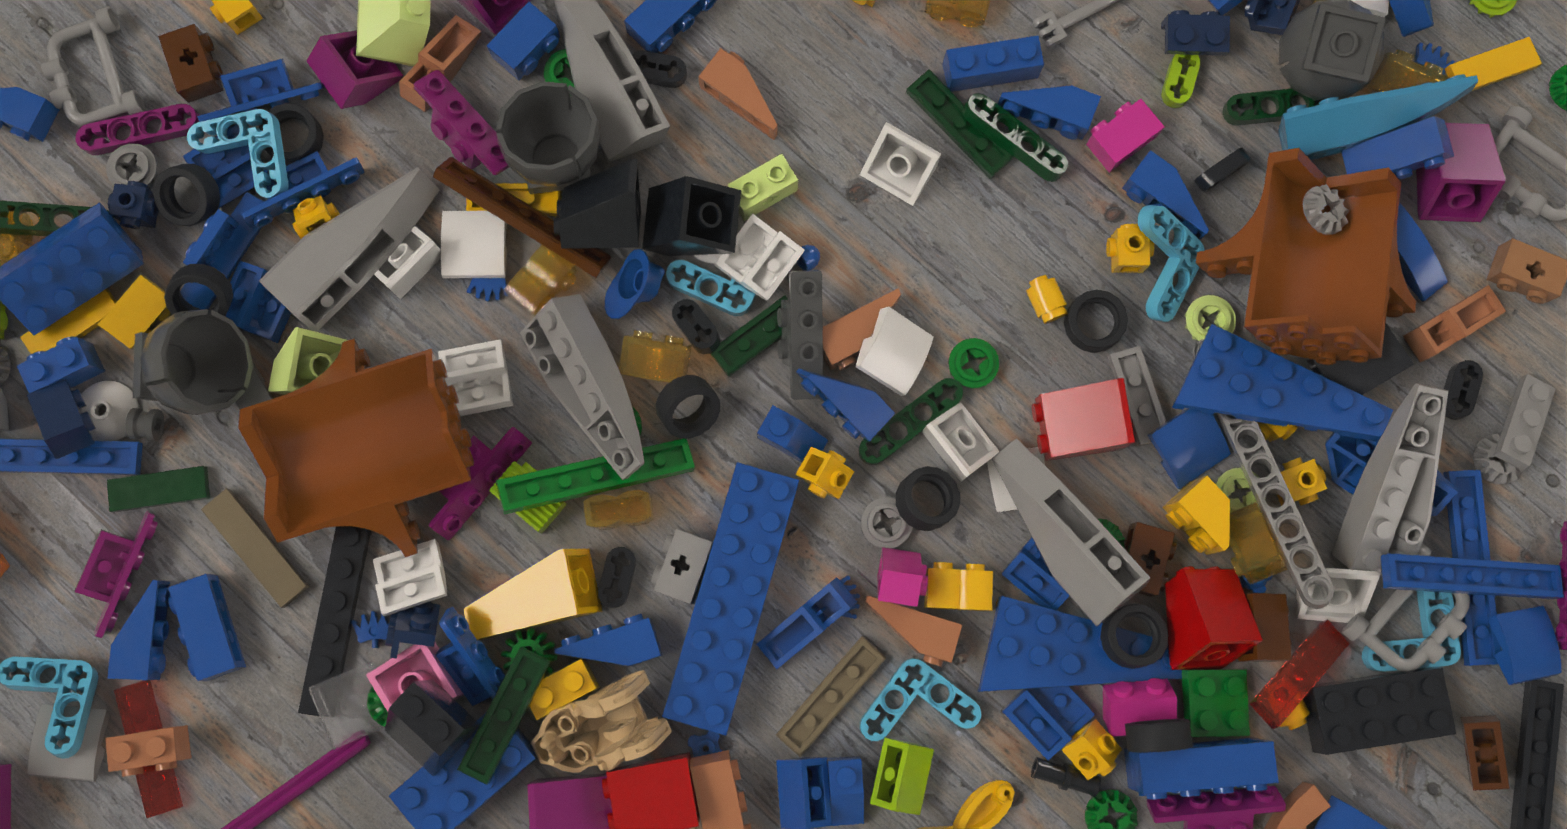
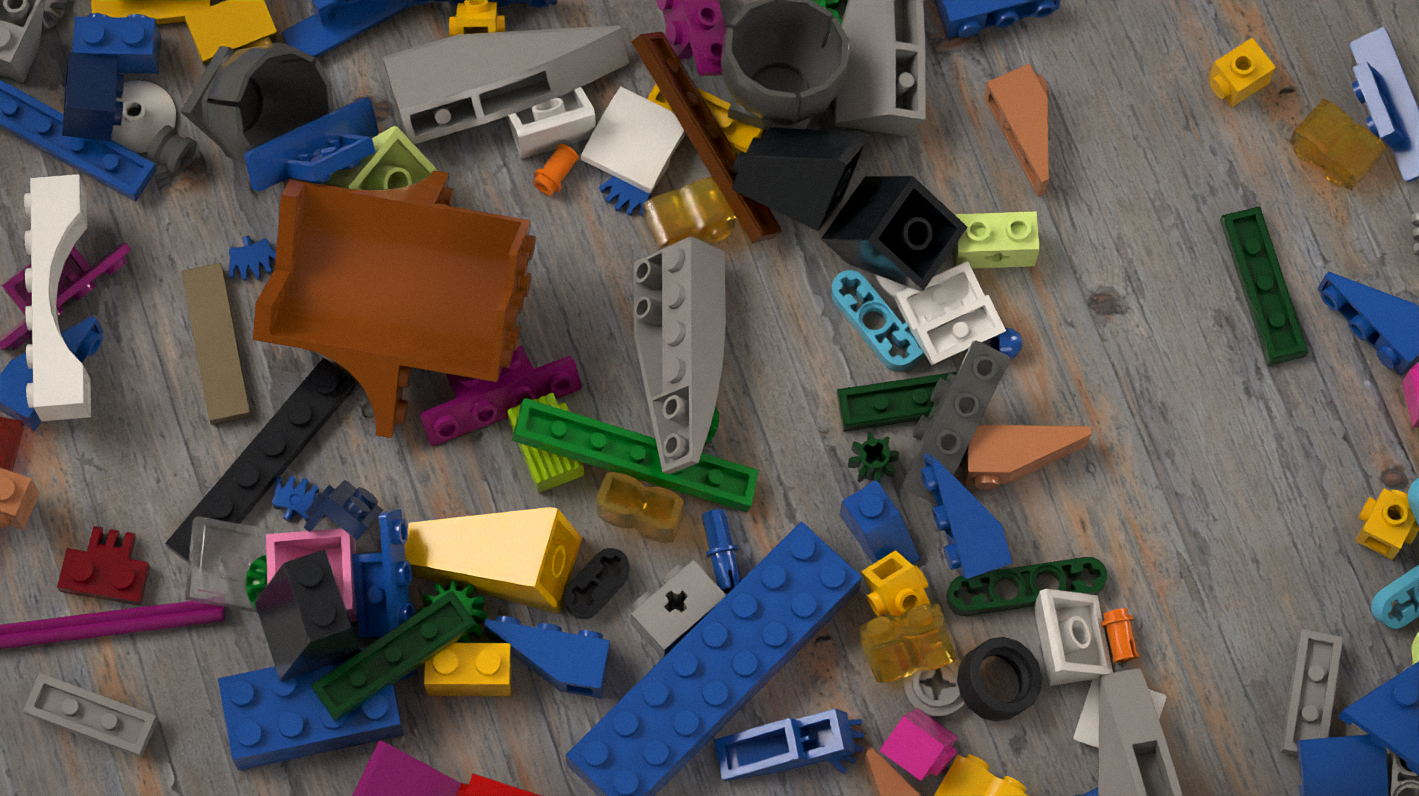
camera: 30 degrees right, 10 degrees down
(87, 528) = (57, 221): none -> white arch
(158, 489) = (147, 226): dark green tile -> none
(203, 275) = (326, 19): black tyre -> none
(206, 627) = (118, 399): blue brick -> none
(245, 471) = (251, 256): none -> blue piece
(247, 374) = (316, 148): none -> blue bracket
(254, 306) = (360, 73): blue slope -> none
(265, 752) = (105, 569): none -> dark red hinge
(410, 579) = (368, 461): white slope -> none
(429, 295) = (554, 171): none -> orange pin
(478, 376) = (563, 286): white slope -> none
(601, 729) = (486, 727): tan animal -> none
(634, 283) = (792, 272): blue piece -> none
(653, 357) = (772, 364): clear yellow brick -> none
(660, 63) = (949, 49): black beam -> none
(676, 392) = (779, 460): black tyre -> none
(690, 330) = (844, 352): black beam -> none
(690, 508) = (721, 549): none -> blue axle
(754, 382) = (868, 450): none -> dark green gear
(853, 508) = (907, 643): none -> clear yellow brick
(894, 351) = (1049, 495): white slope -> none
(900, 164) = (1169, 294): white slope -> none
(978, 350) = (1150, 548): green gear -> none
(991, 422) = (1120, 635): none -> orange pin
(993, 63) = (1337, 236): blue brick -> none
(1017, 133) = (1325, 329): dark green beam -> none
(1046, 299) = (1260, 529): yellow brick -> none
(1083, 420) = (1228, 685): slope -> none
(1115, 307) = (1324, 560): black tyre -> none

